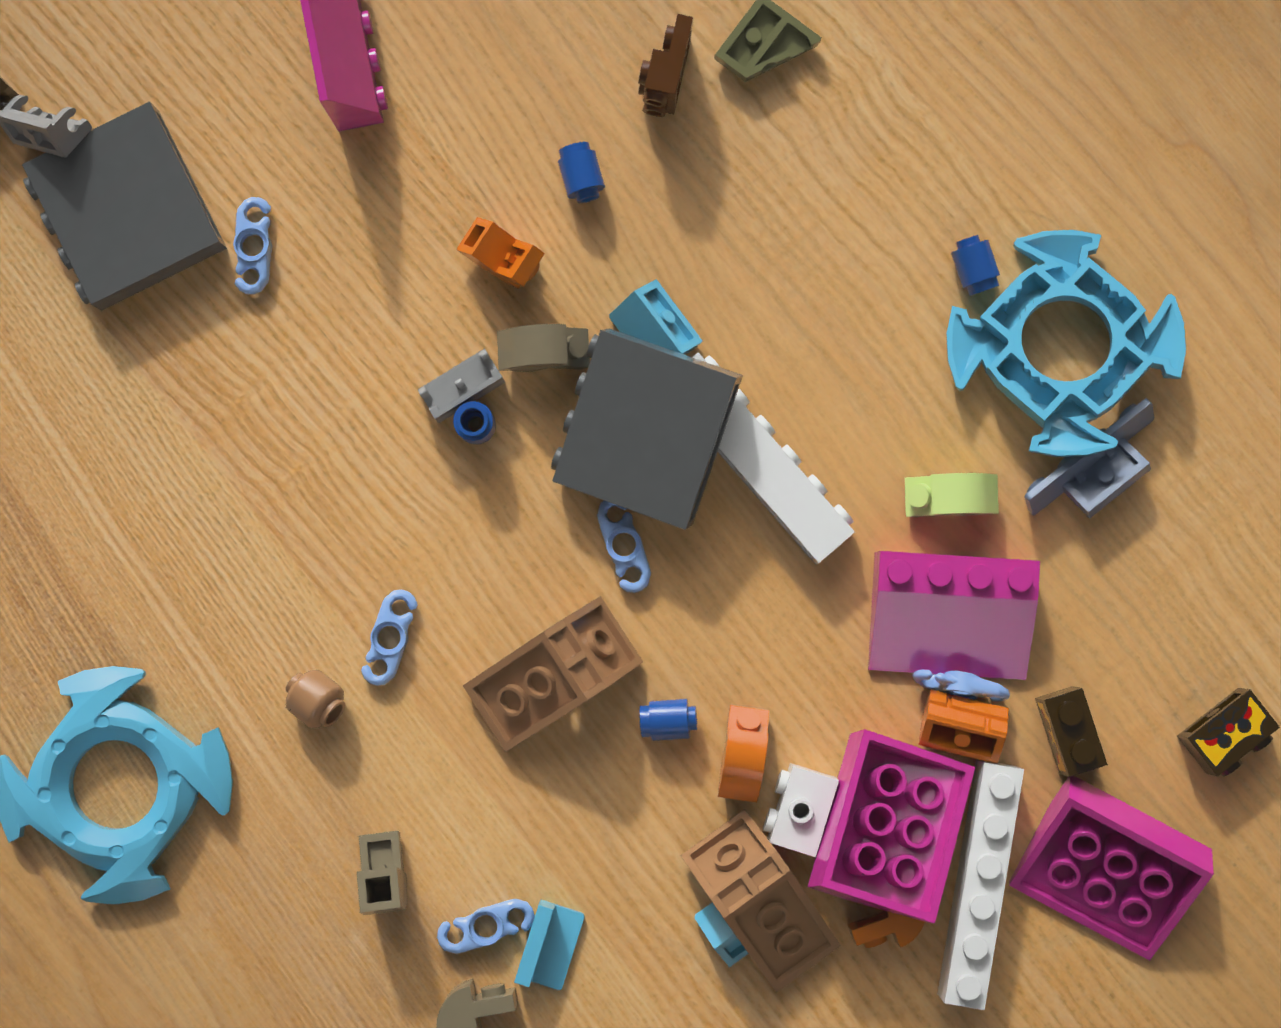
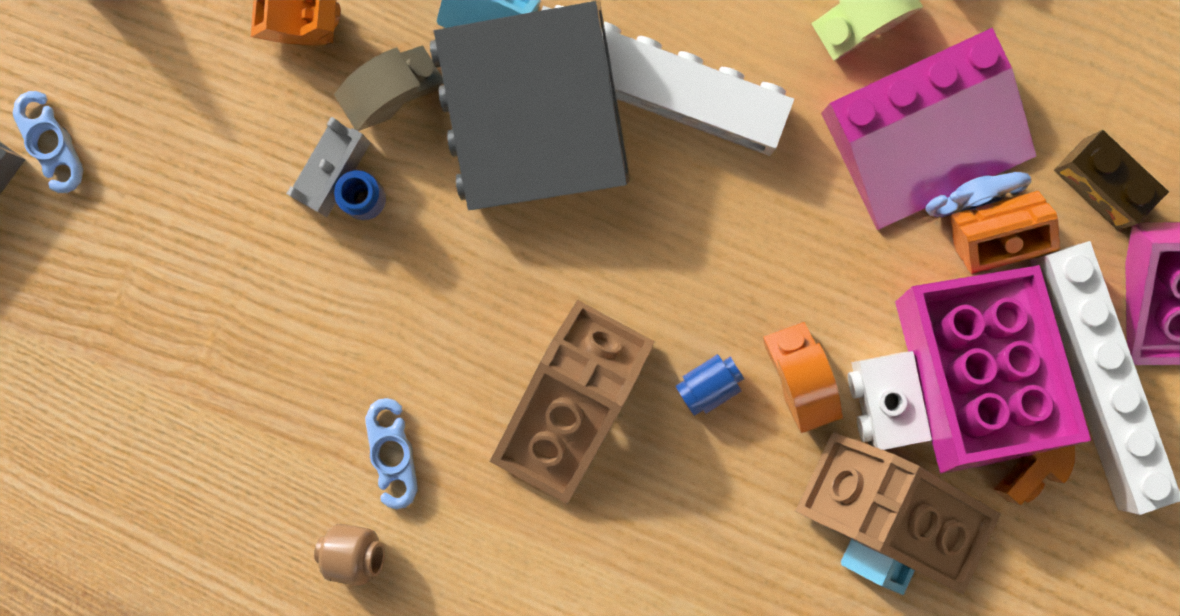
camera: 25 degrees left, 0 degrees up
(622, 563) = (593, 244): light blue piece -> none

